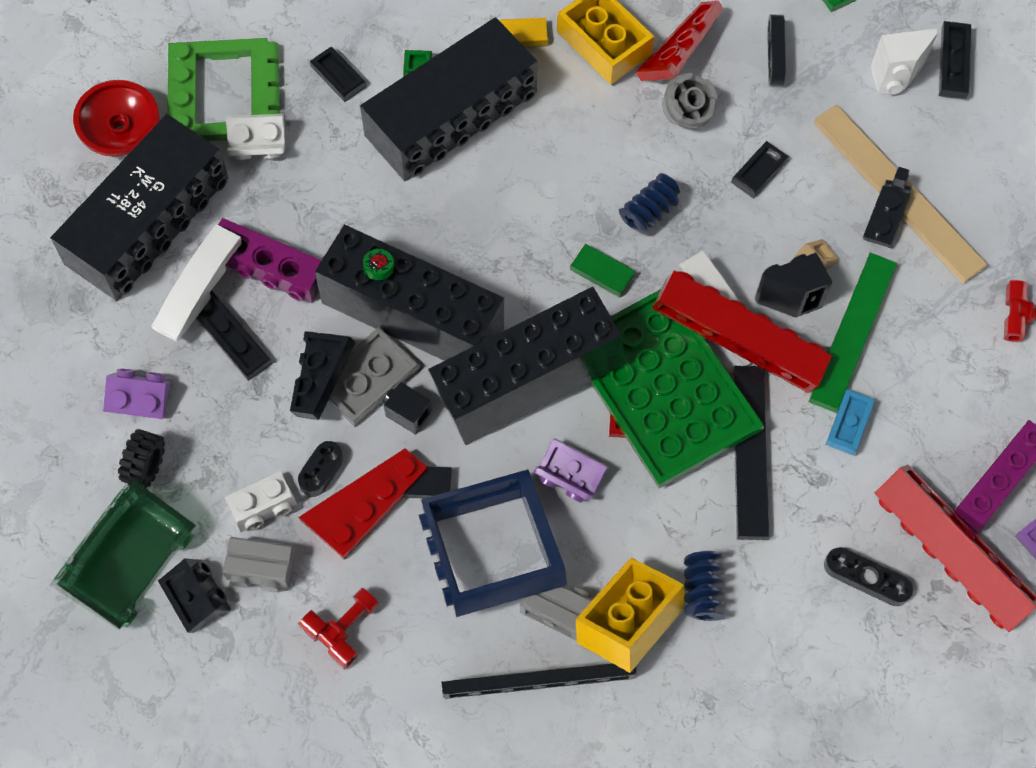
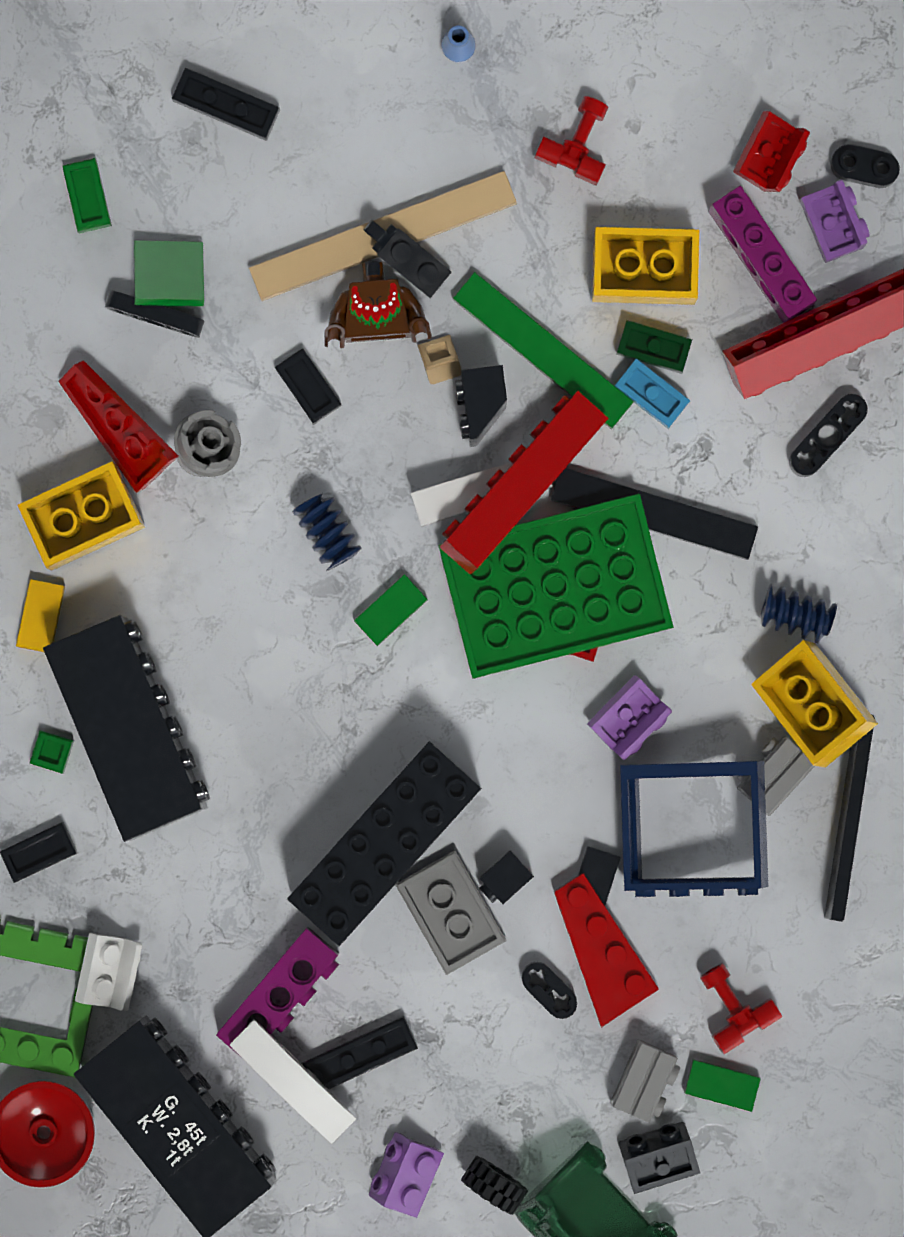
camera: 70 degrees left, 20 degrees up
(261, 502) = (570, 1064): white bracket -> none
(270, 634) = (722, 1085): none -> green tile
(321, 368) = (436, 962): black wing -> none
(378, 264) = (356, 873): green tile -> none
(529, 365) = (508, 734): black brick -> none
(811, 48) = (168, 273): none -> green tile
(836, 195) = (375, 311): none -> reddish brown torso
(890, 414) = (654, 346): none -> dark green plate
(900, 59) = (220, 175): white slope -> none
(955, 385) = (645, 265): none -> yellow brick

